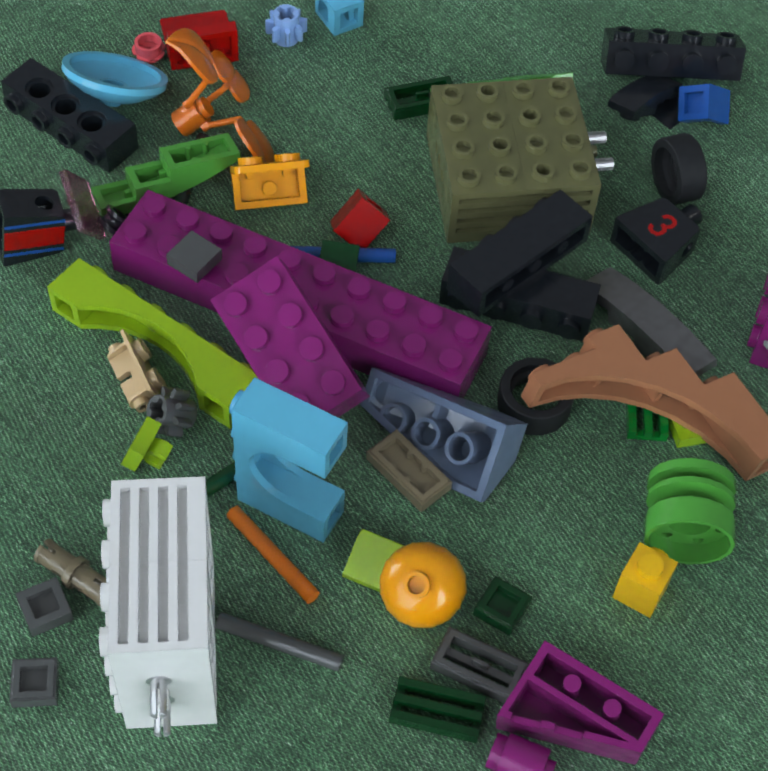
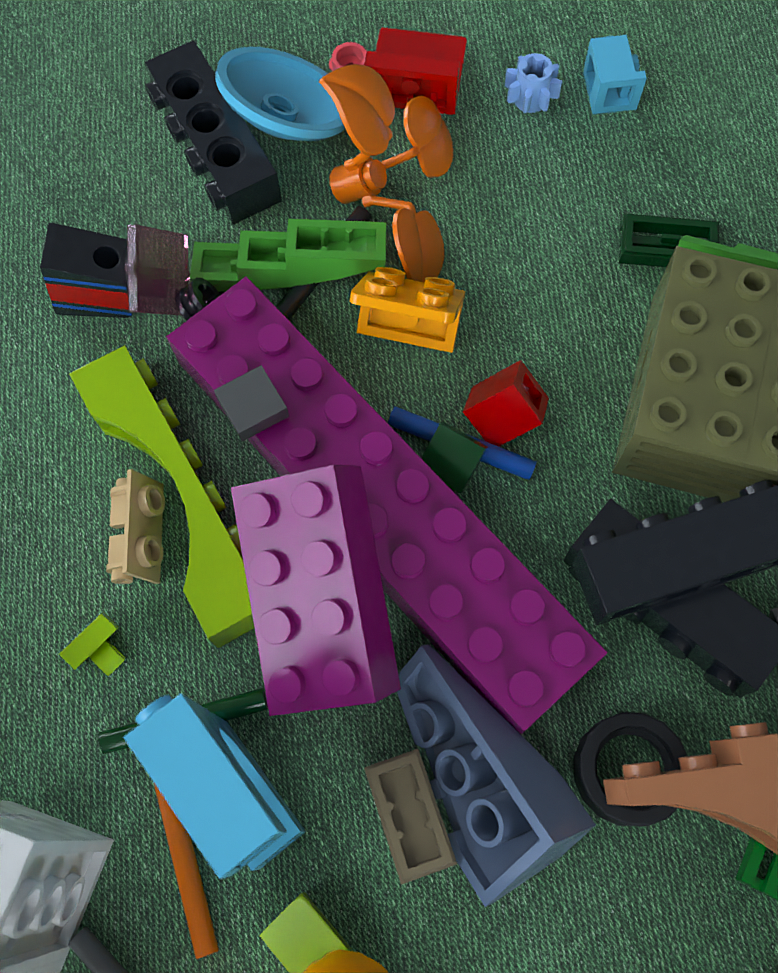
camera: 30 degrees right, 15 degrees up
(172, 410) = (145, 608): dark grey gear -> none

